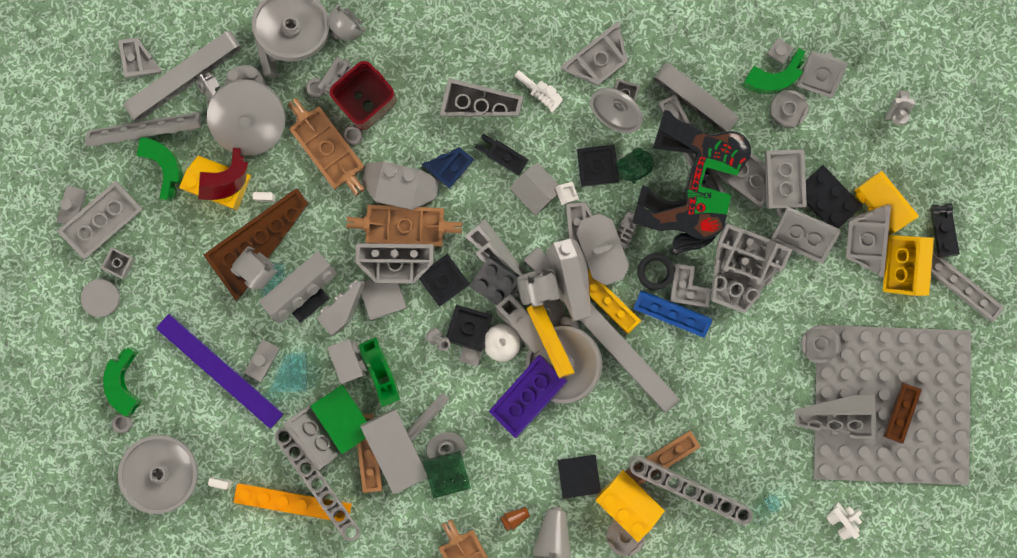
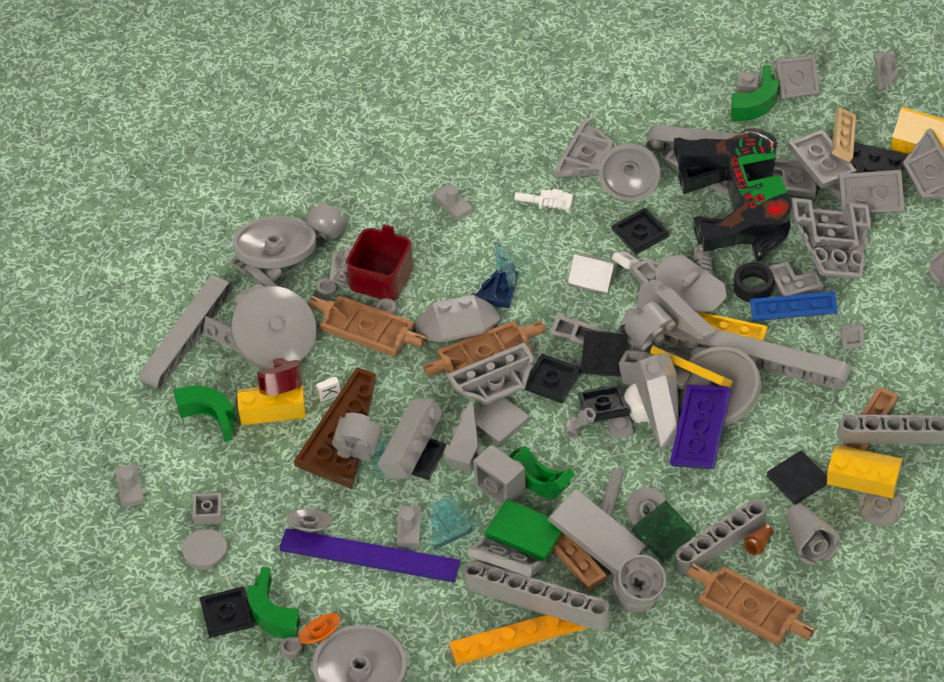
camera: 25 degrees left, 35 degrees down
(89, 364) = (226, 612): none -> black tile
(100, 219) = (167, 479): light grey plate -> none
(136, 59) = (131, 339): light grey wing -> none
(142, 129) = (163, 394): light grey plate -> none
(147, 422) = (319, 628): none -> orange dish
(187, 310) = (309, 520): none -> light grey dish
(219, 483) = (430, 648): white tile -> none
(396, 528) = (643, 573): none -> light grey wheel
(462, 52) = (453, 202): none -> light grey tile
(463, 146) = (505, 263): none -> clear light blue slope
(478, 101) = (499, 223): light grey wedge -> none
(478, 508) = (710, 545): none -> light grey beam
(503, 155) = (543, 259): black hinge -> none
(510, 352) = (658, 391): none -> light grey wedge
(635, 165) = (675, 210): clear green plate -> none
(700, 368) = (852, 336): none -> light grey tile
(783, 108) = (792, 118): light grey tile -> none
(820, 161) = (844, 134): none -> tan tile

